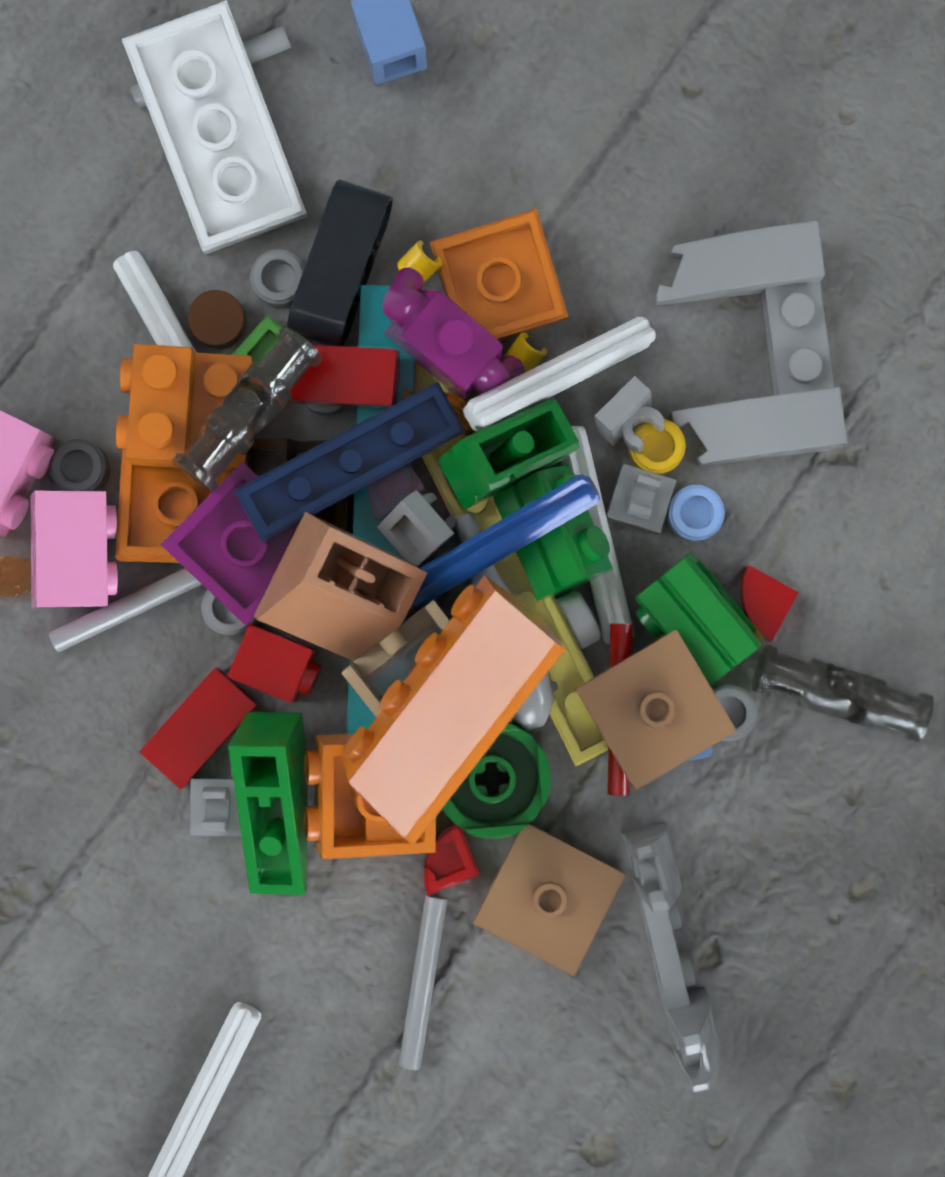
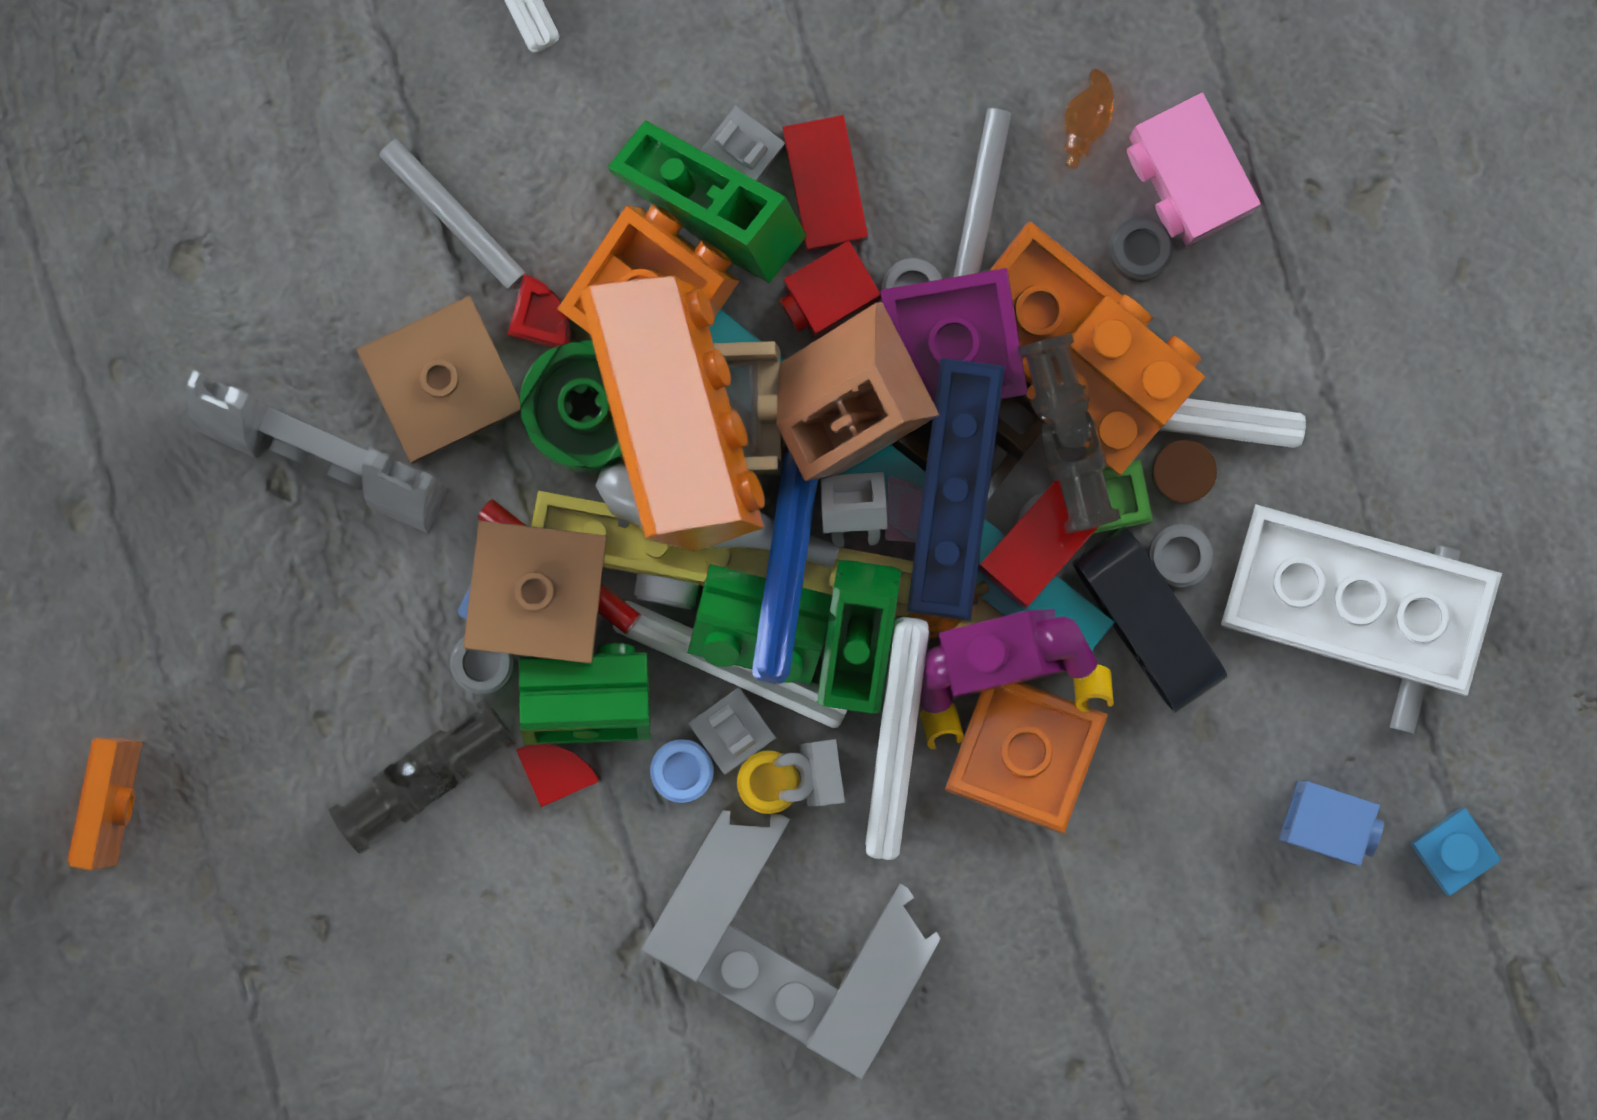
camera: 120 degrees right, 0 degrees up
(71, 549) = (1066, 187): bright pink brick -> none

